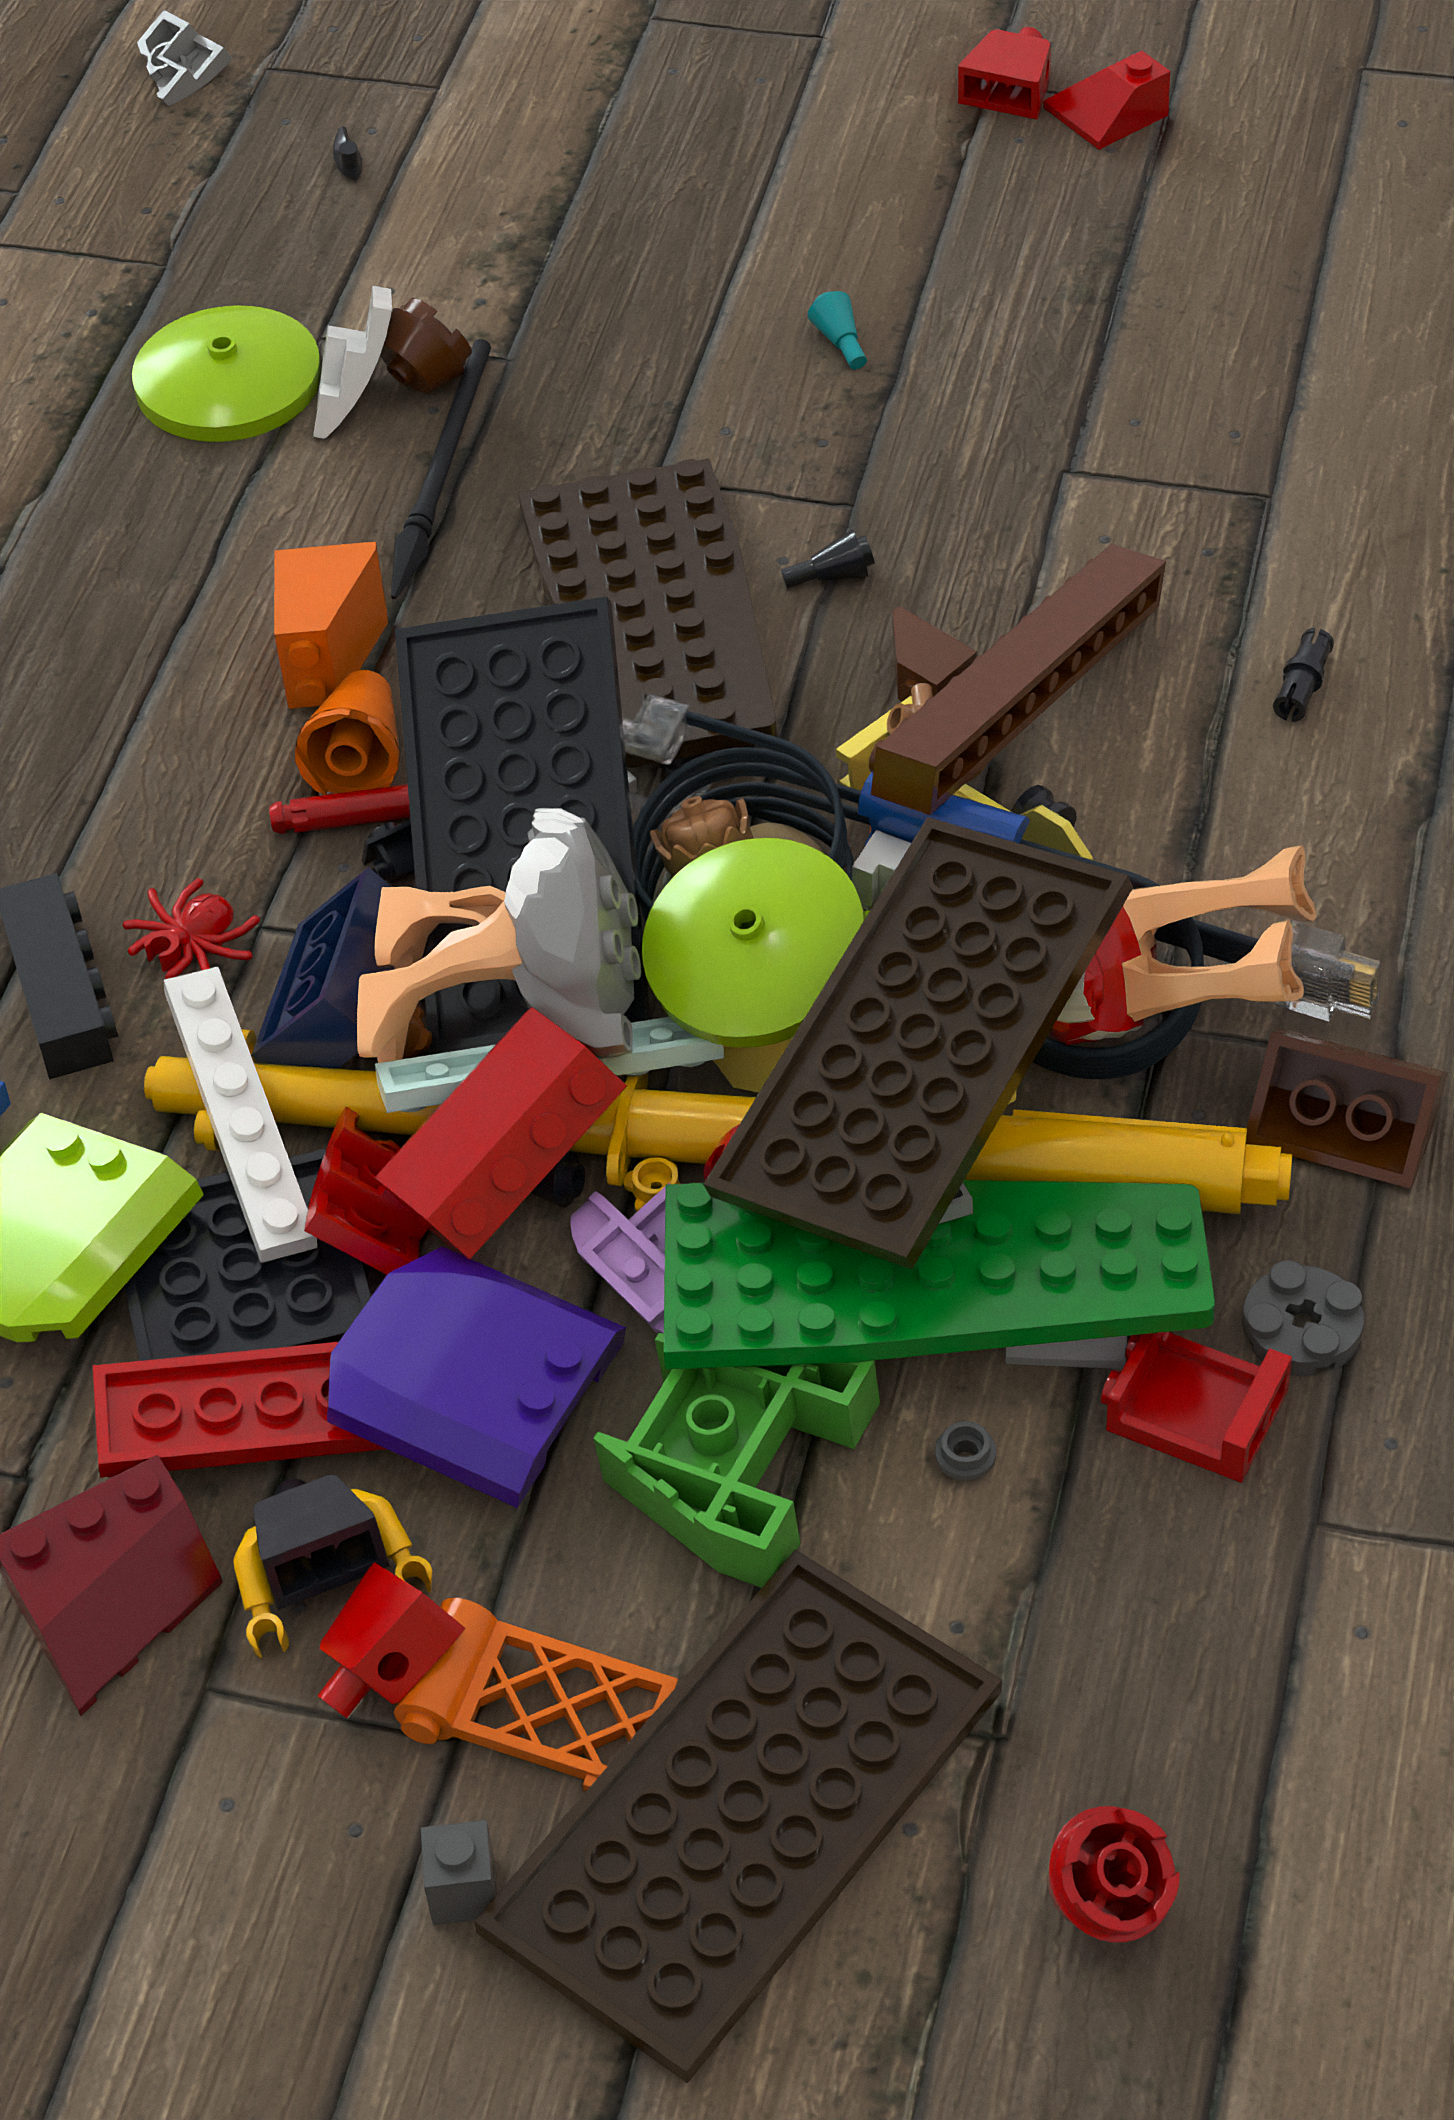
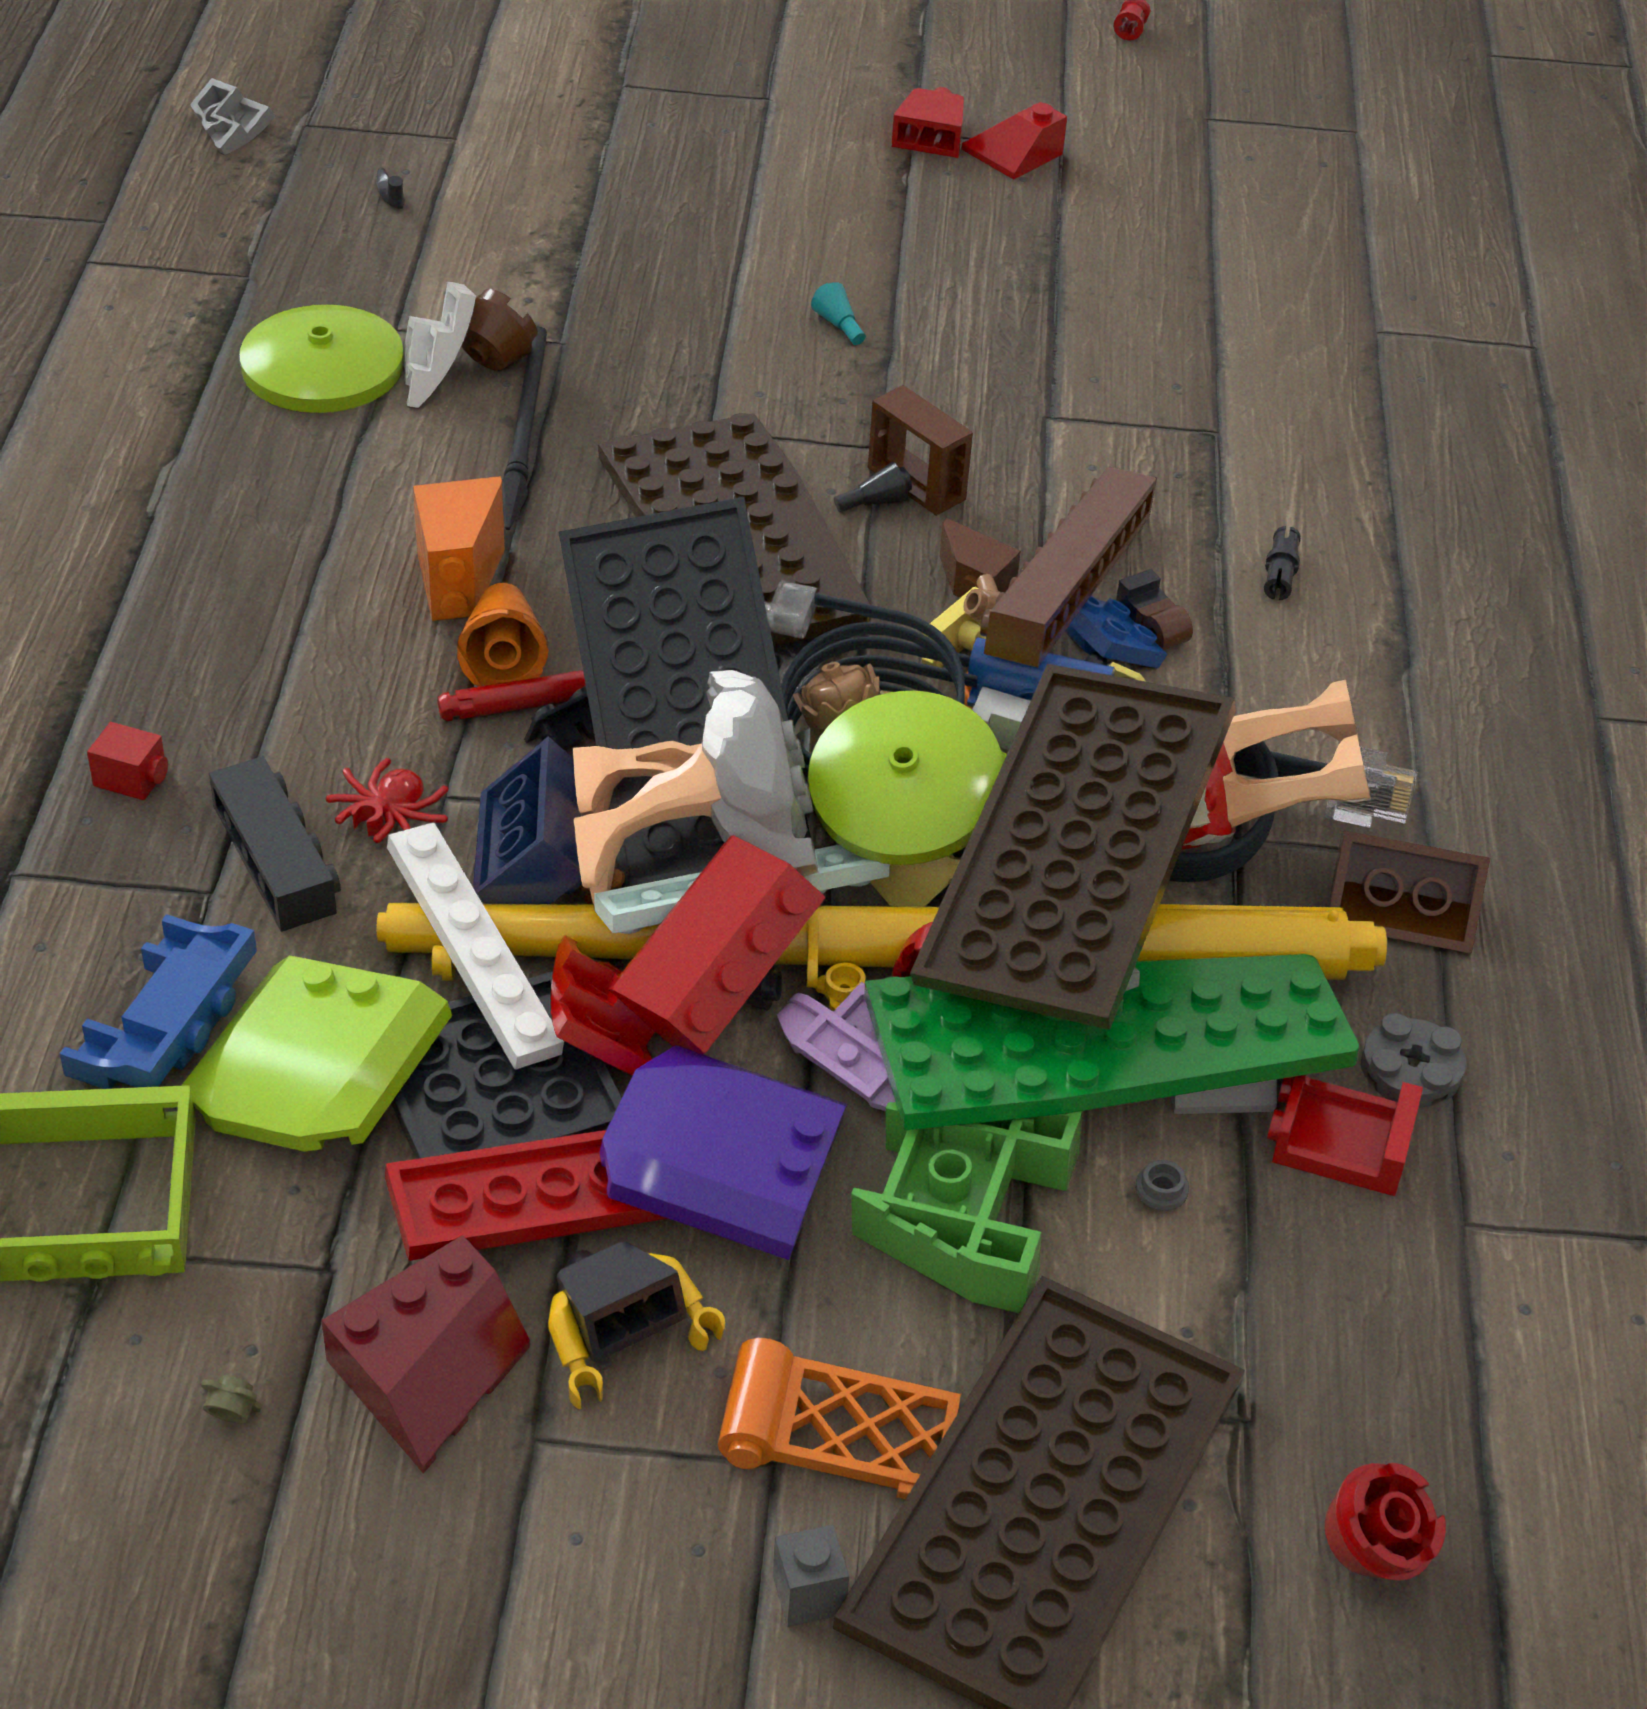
camera: 15 degrees left, 5 degrees down
(384, 1641) = (703, 1378): red torso -> none
(909, 533) = (946, 477): none -> reddish brown window
(1070, 760) = (1114, 635): none -> blue plate
(1124, 733) = (1154, 609): none -> leg

